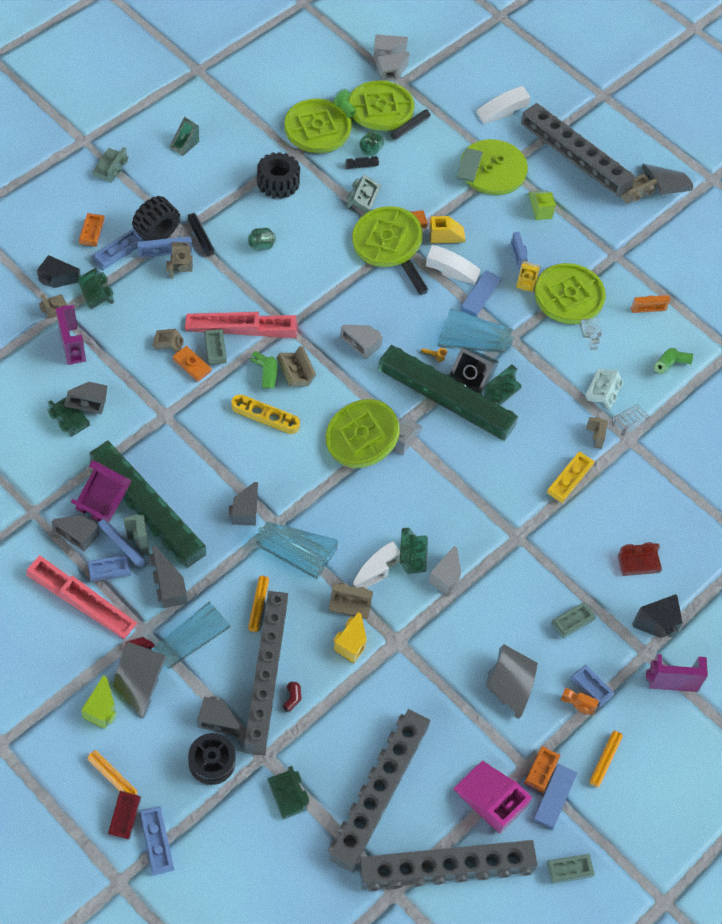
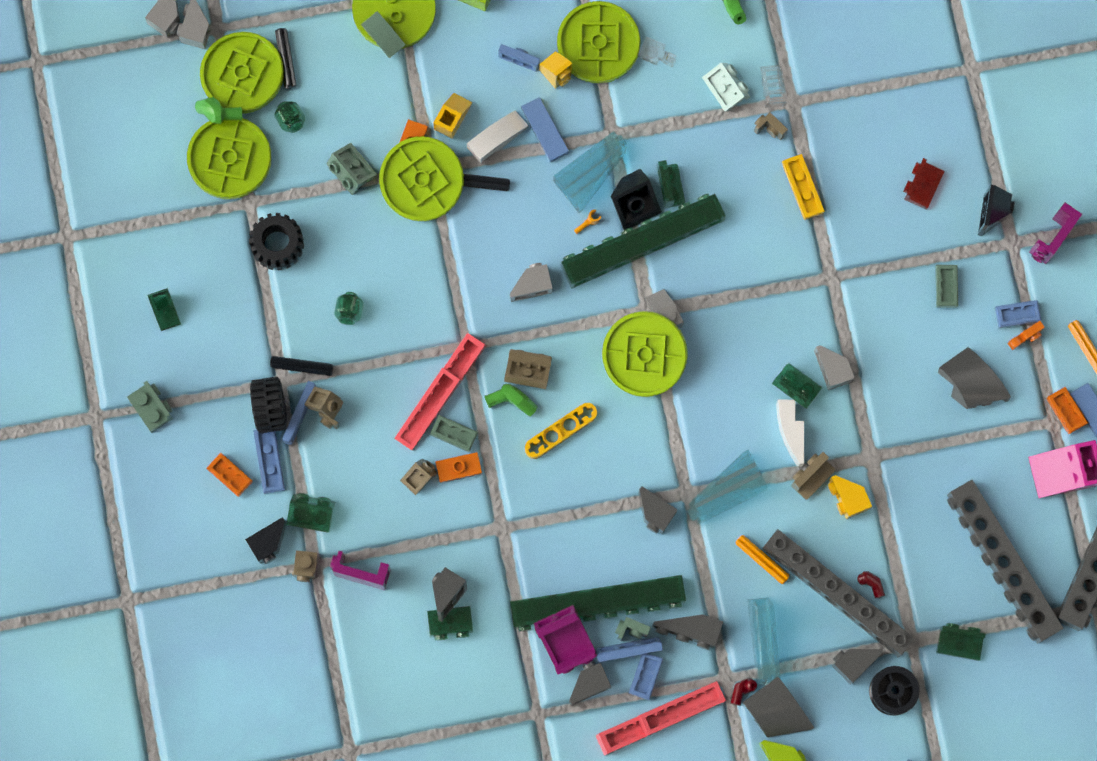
camera: 55 degrees left, 20 degrees up
(362, 162) = (306, 141): black axle -> none

